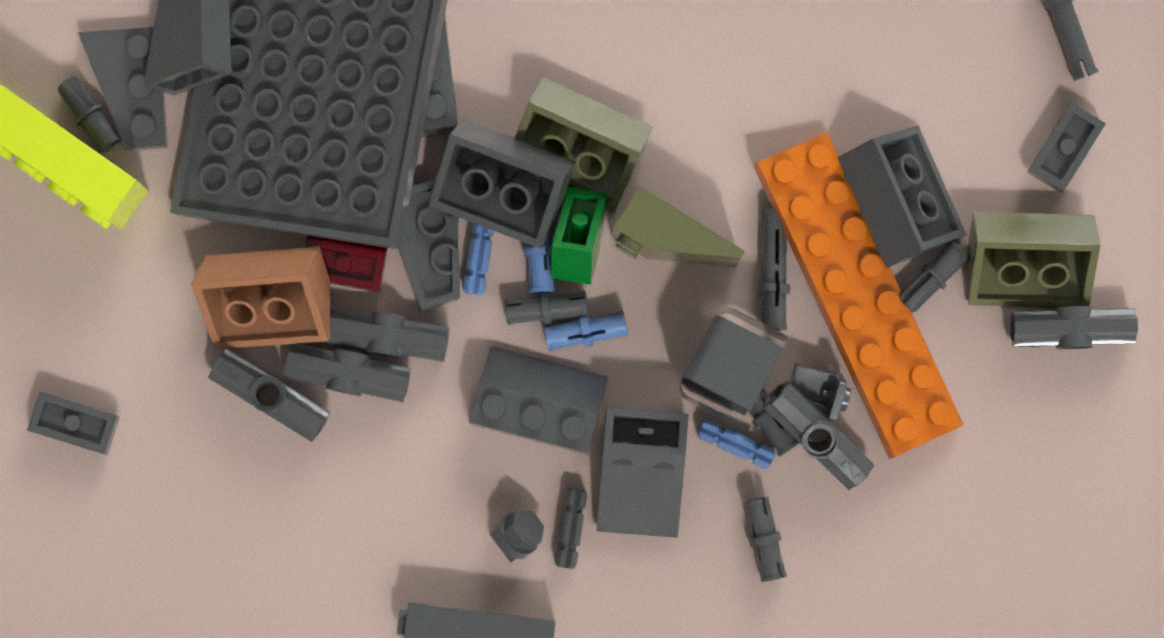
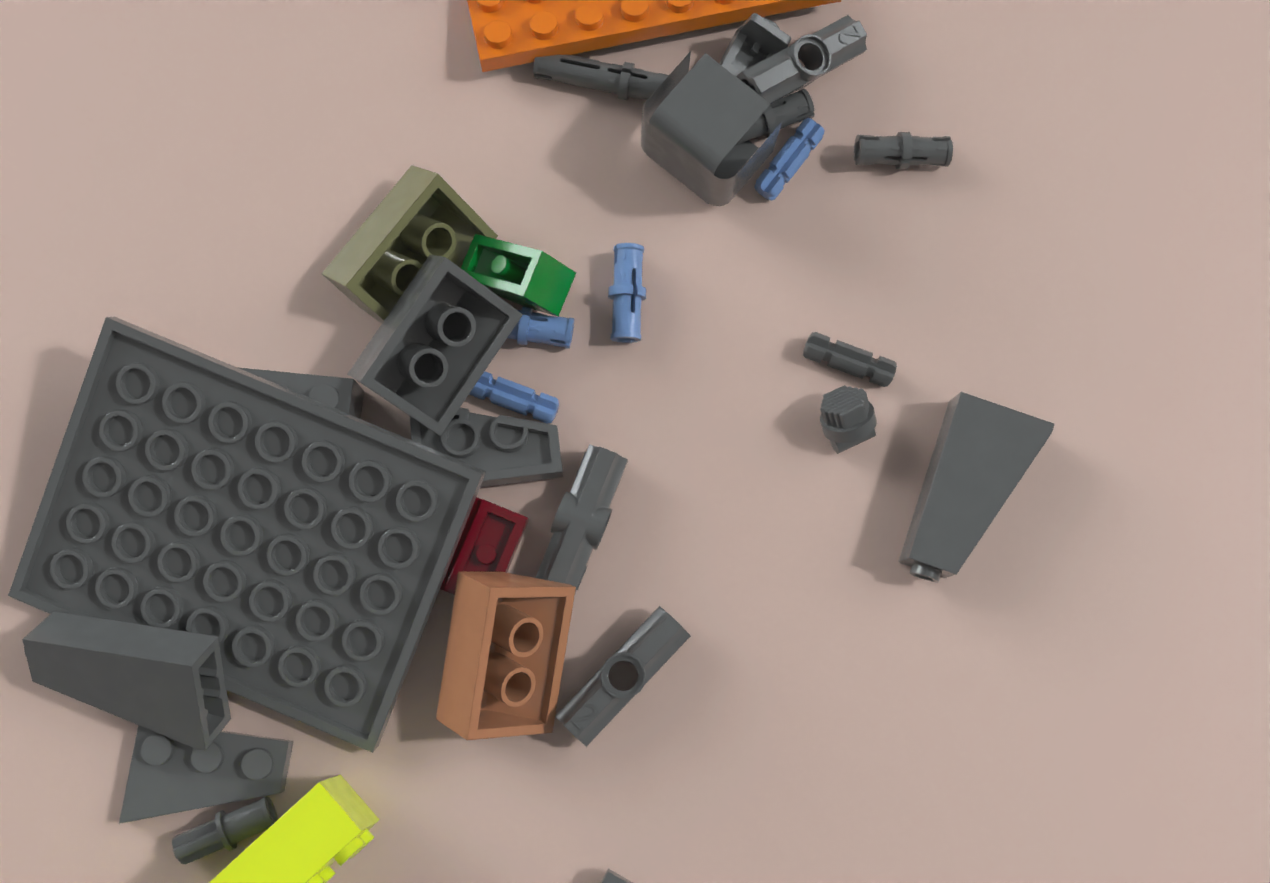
camera: 80 degrees left, 5 degrees down
(347, 372) = (616, 576): dark grey piece -> none
(538, 400) = (697, 361): dark grey slope -> none
(546, 308) = (591, 331): dark grey pin -> none
(642, 472) = (802, 261): dark grey slope -> none
(665, 233) = (532, 174): olive slope -> none

